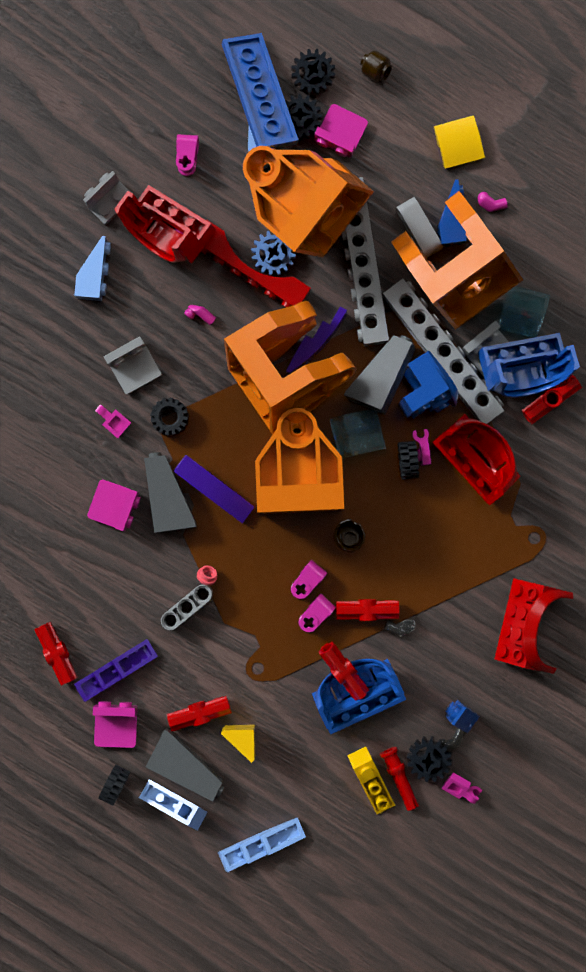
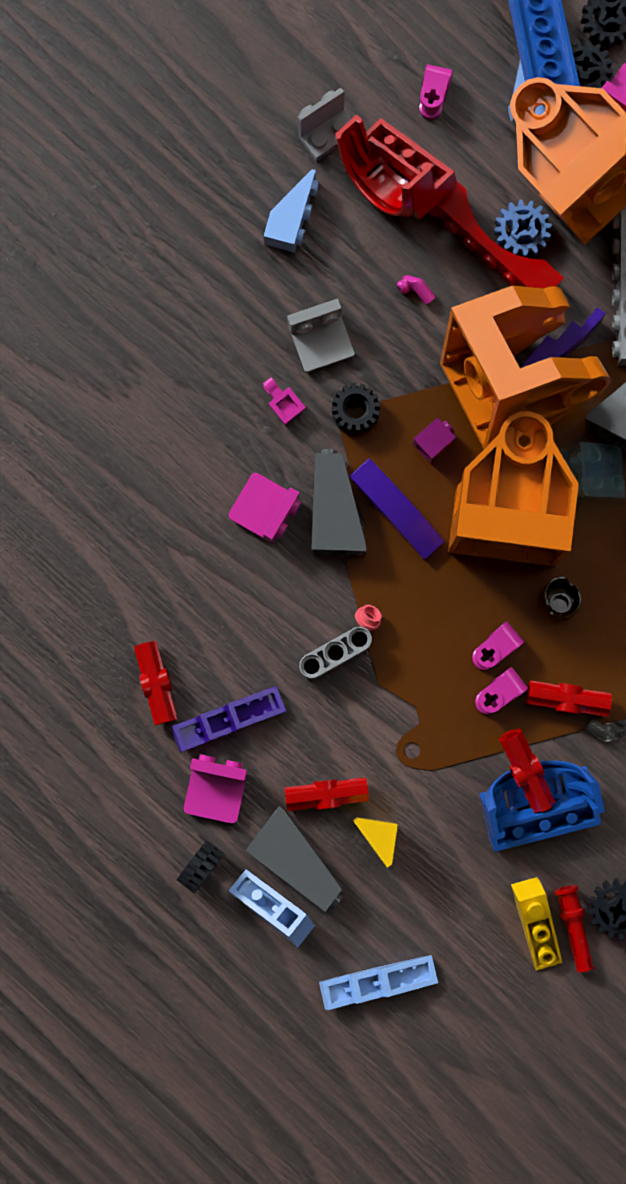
camera: 15 degrees right, 5 degrees down
(233, 430) = (434, 440): none -> magenta brick

